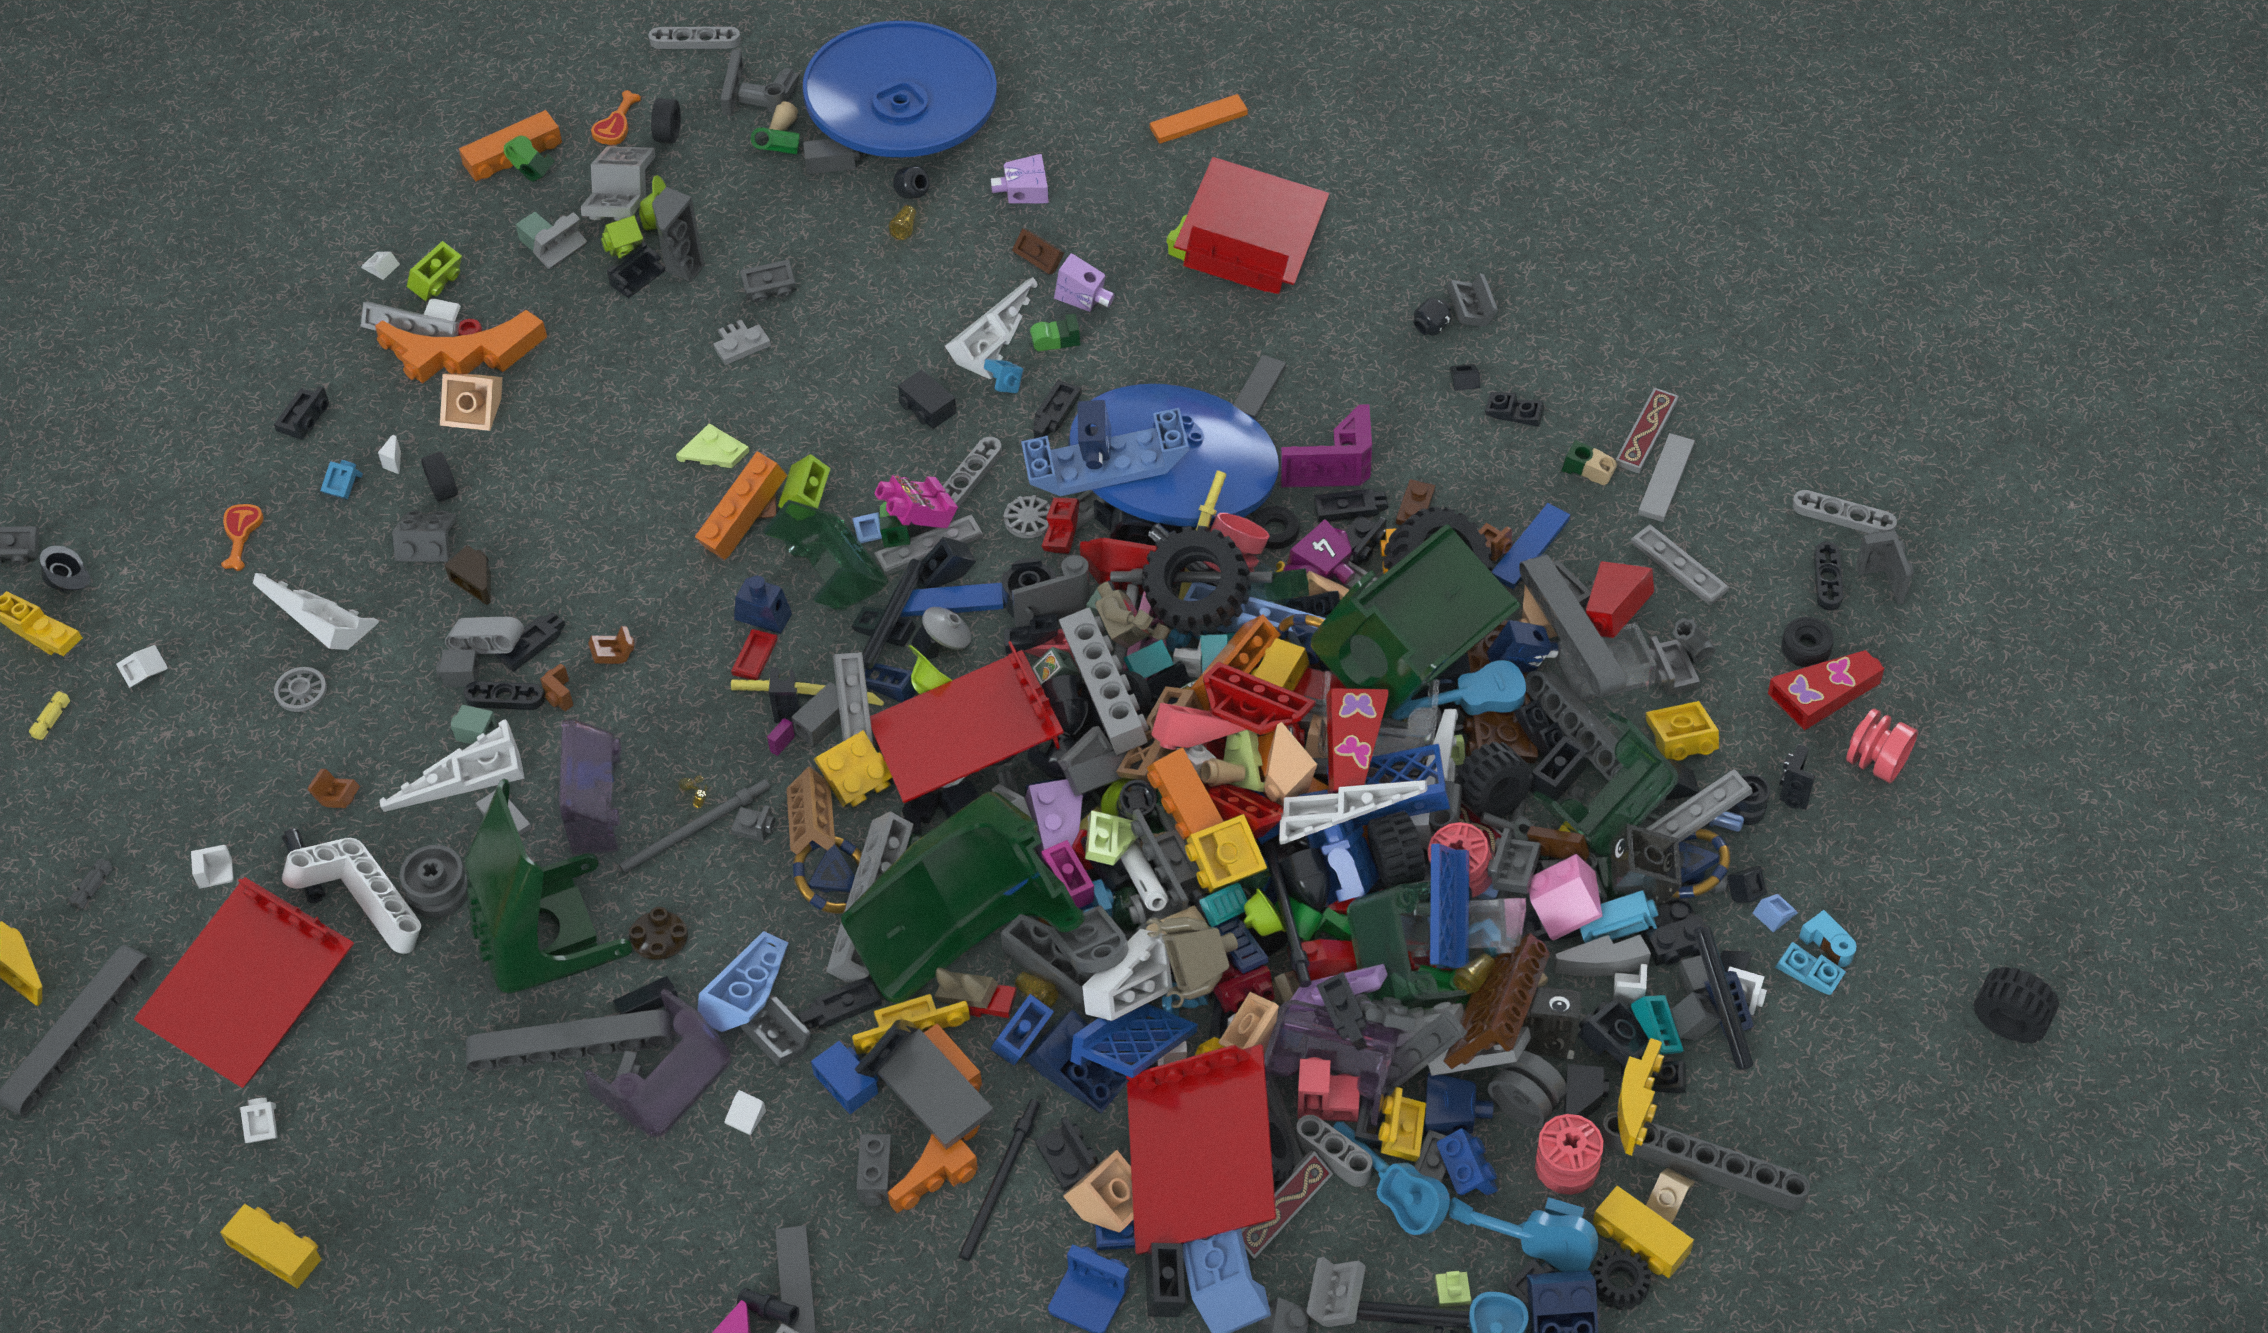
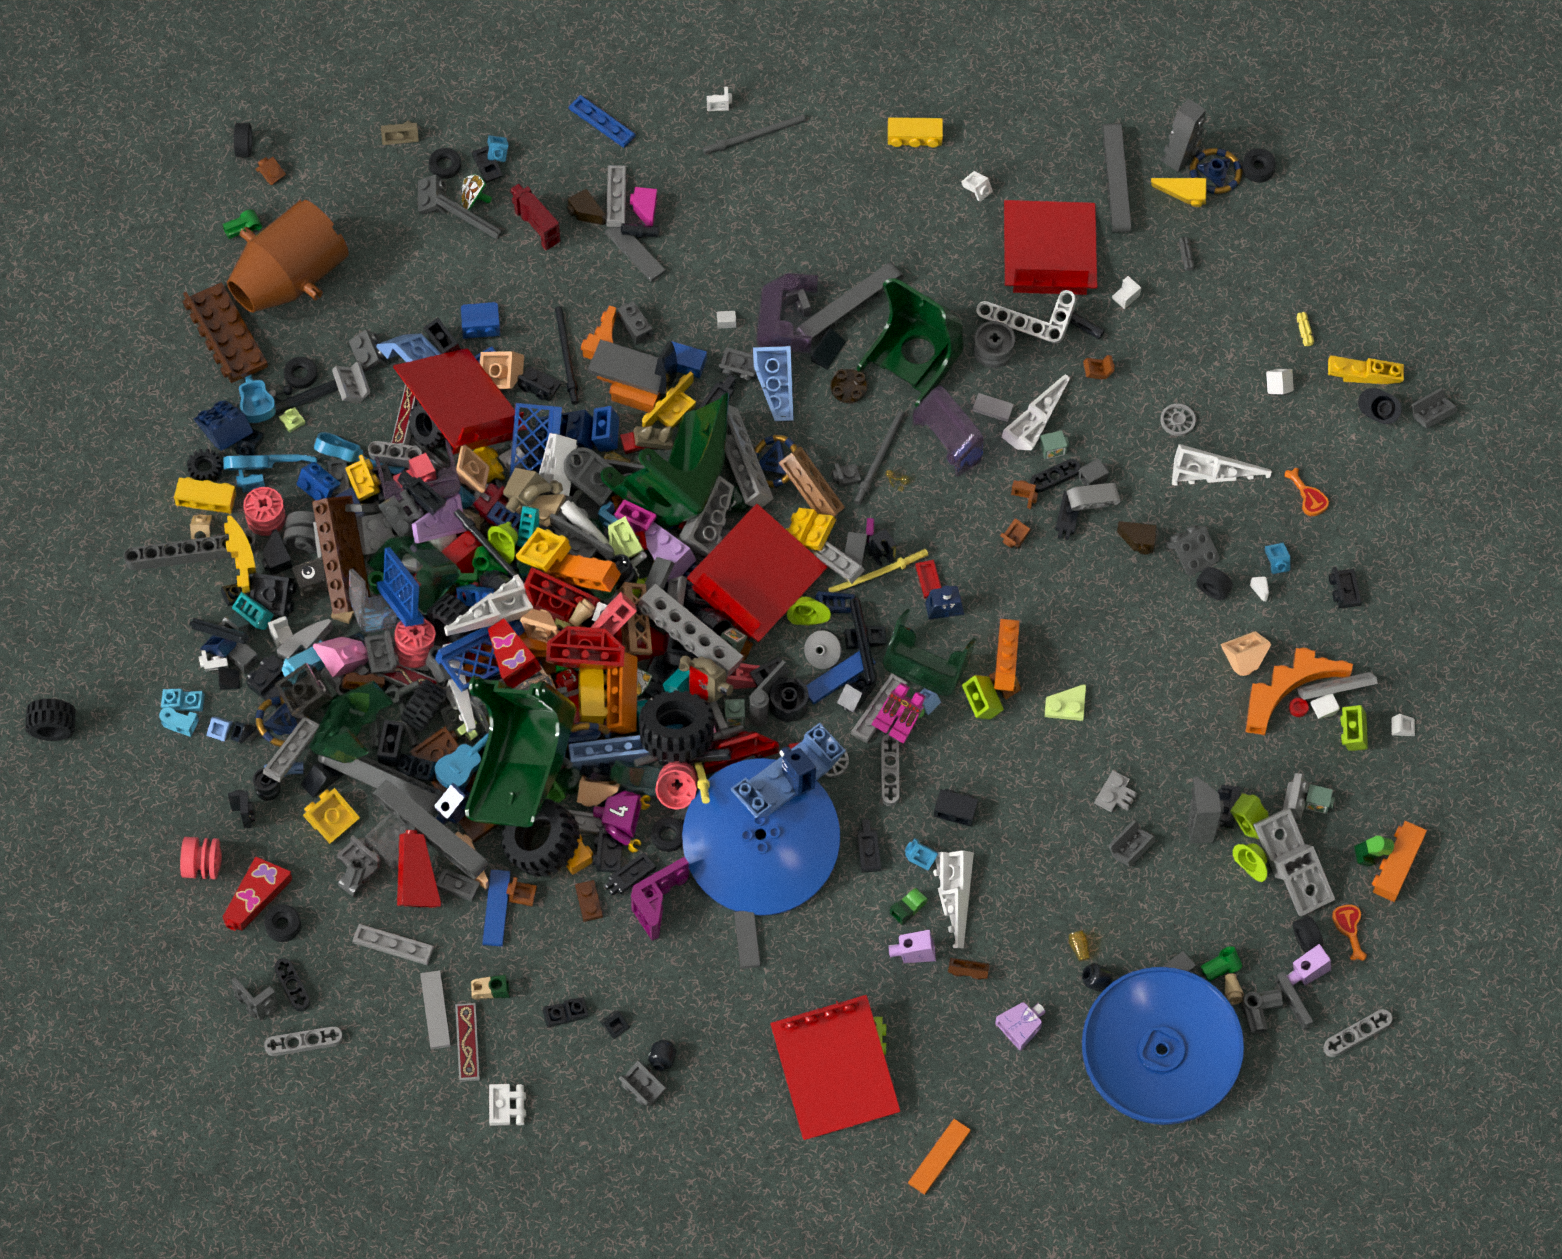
camera: 145 degrees right, 10 degrees up
(691, 92) = (1315, 961): none -> lavender torso
(1474, 973) = (370, 575): clear yellow cone -> none
(1643, 356) = (500, 1104): none -> white plate

